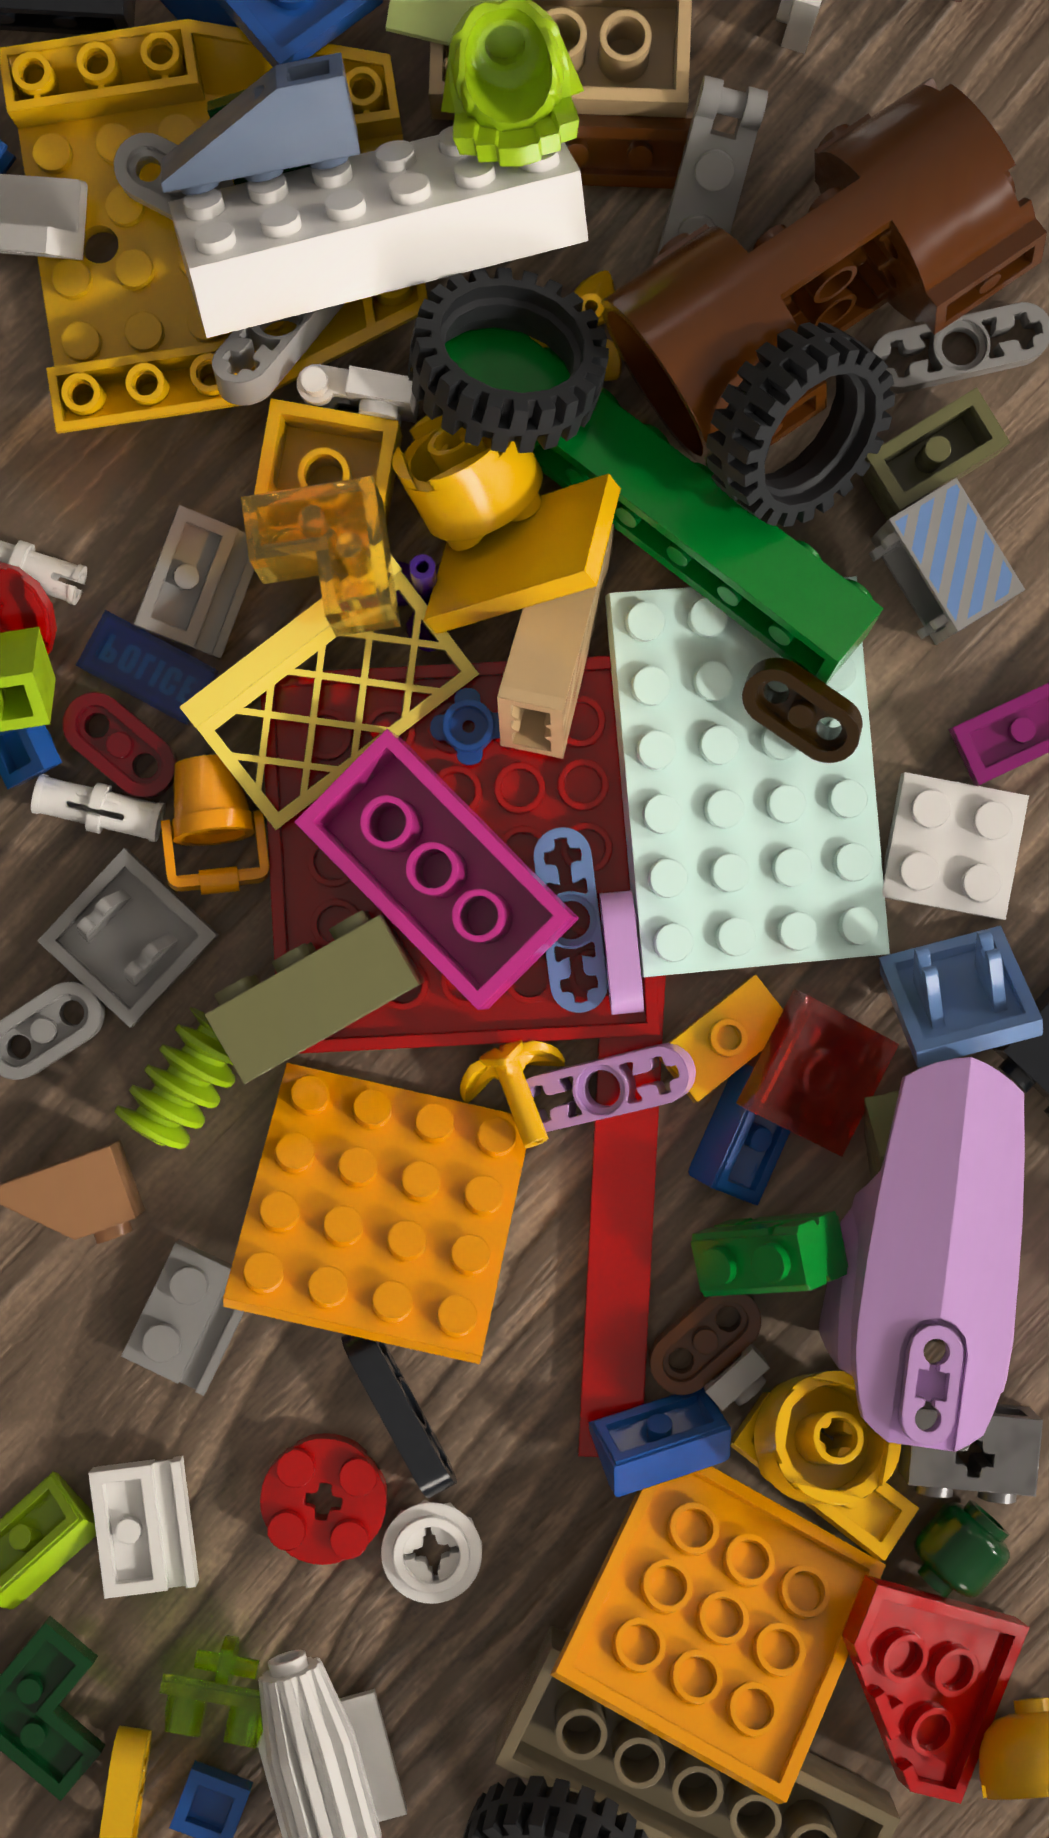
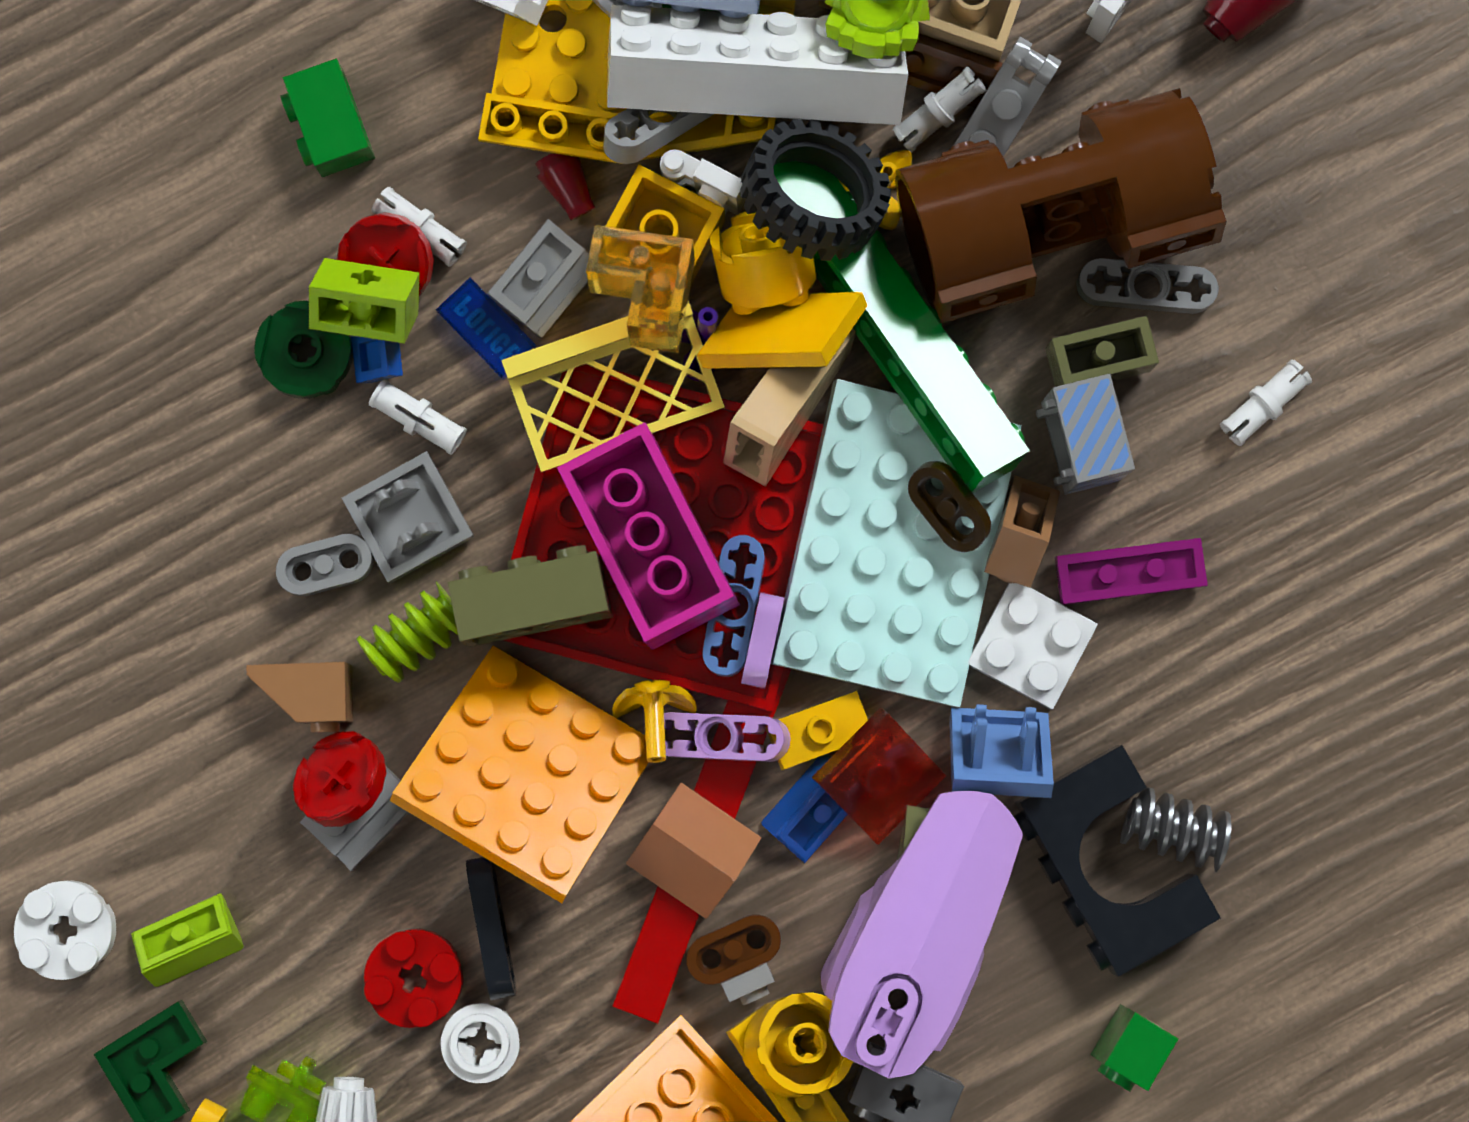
camera: 15 degrees right, 5 degrees down
(121, 746) = (449, 378): dark red plate -> none
(143, 1527) = (274, 954): white plate -> none
(152, 1290) = (339, 779): none -> red tile
(187, 451) = (566, 183): none -> dark red cone
(211, 811) = (496, 446): light orange piece -> none
(449, 726) = (691, 437): blue plate -> none
(619, 1236) = (694, 851): none -> nougat slope
(629, 204) = (939, 109): none -> white pin
(661, 1441) = (677, 1013): blue slope -> none
(763, 401) = (987, 271): black tyre -> none
(769, 1254) = (800, 896): green brick -> none
(902, 711) = (1023, 532): none -> medium nougat slope

